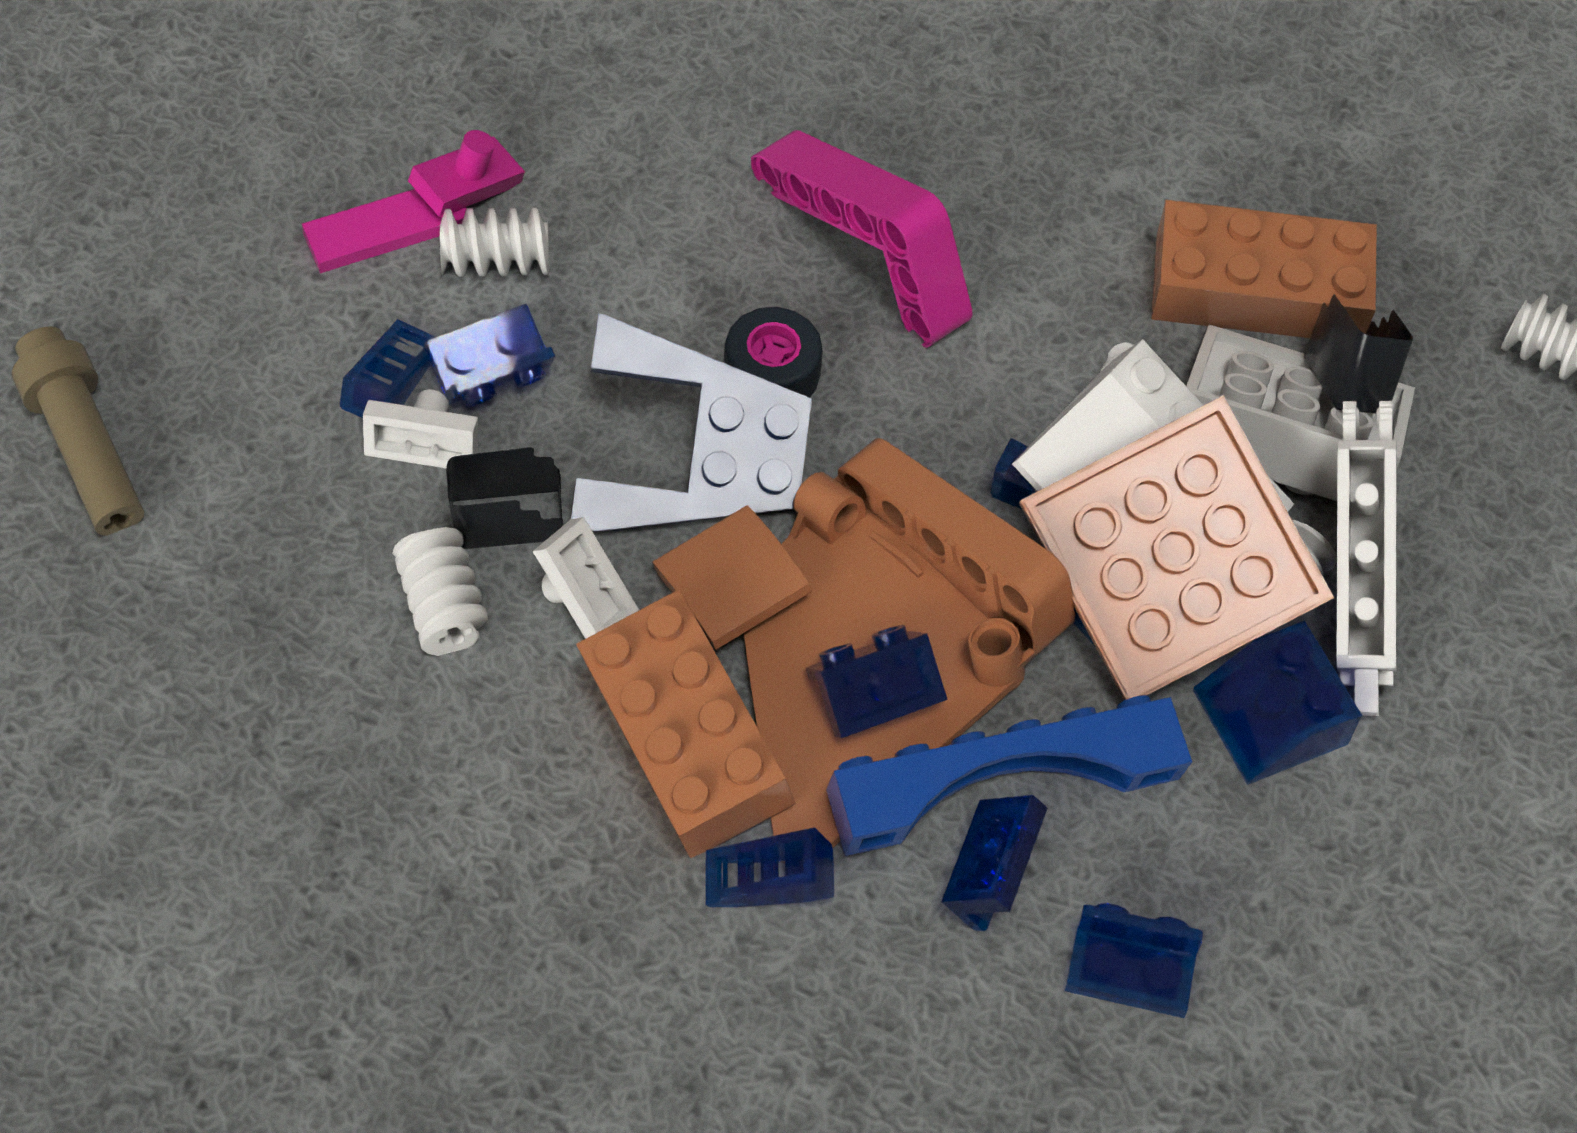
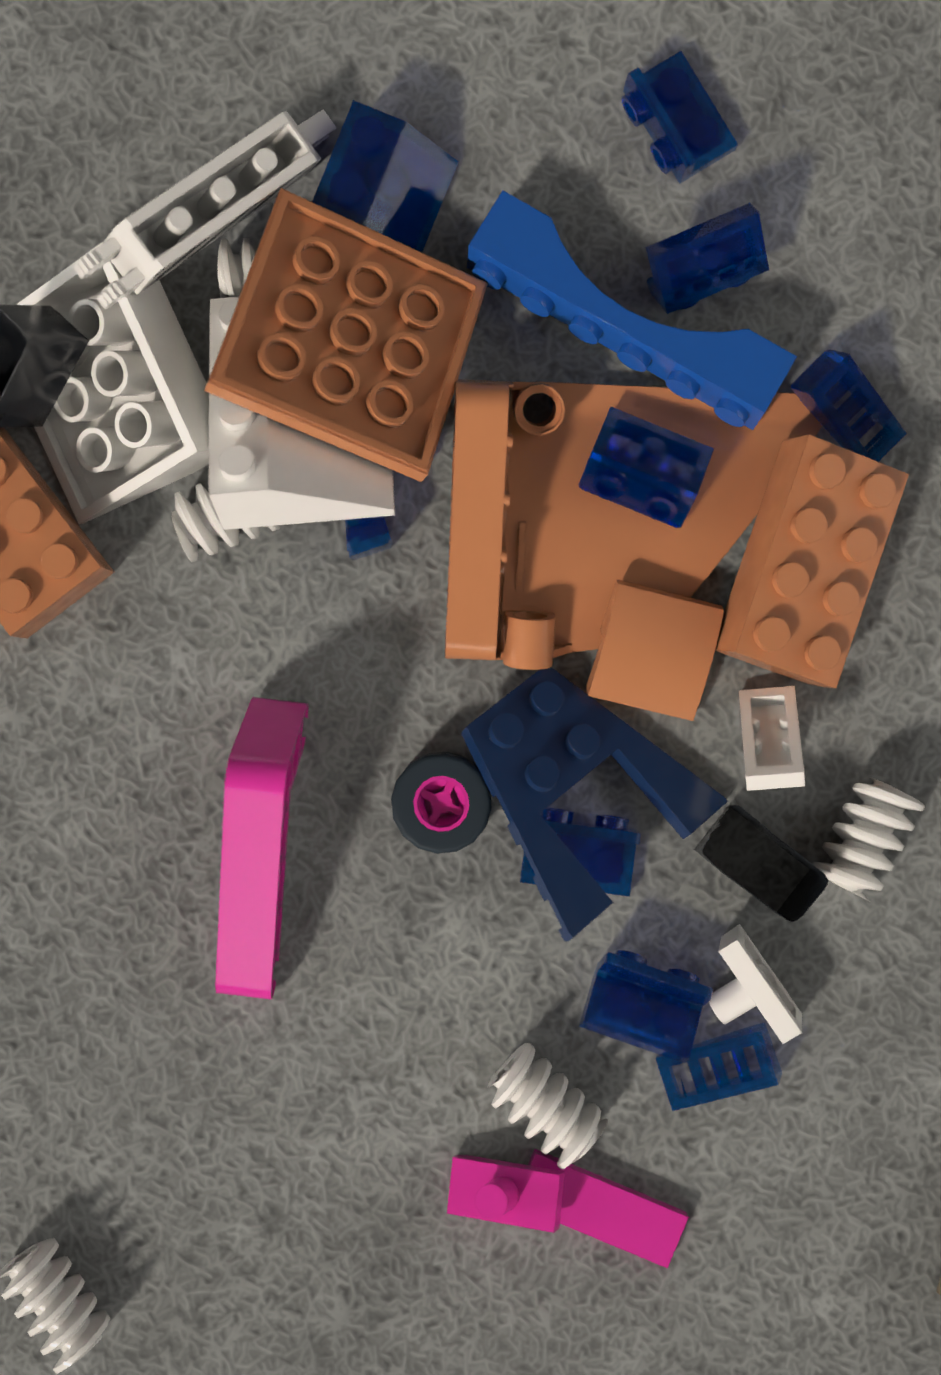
camera: 130 degrees left, 30 degrees up
(636, 417) = (602, 848): none -> clear blue bracket

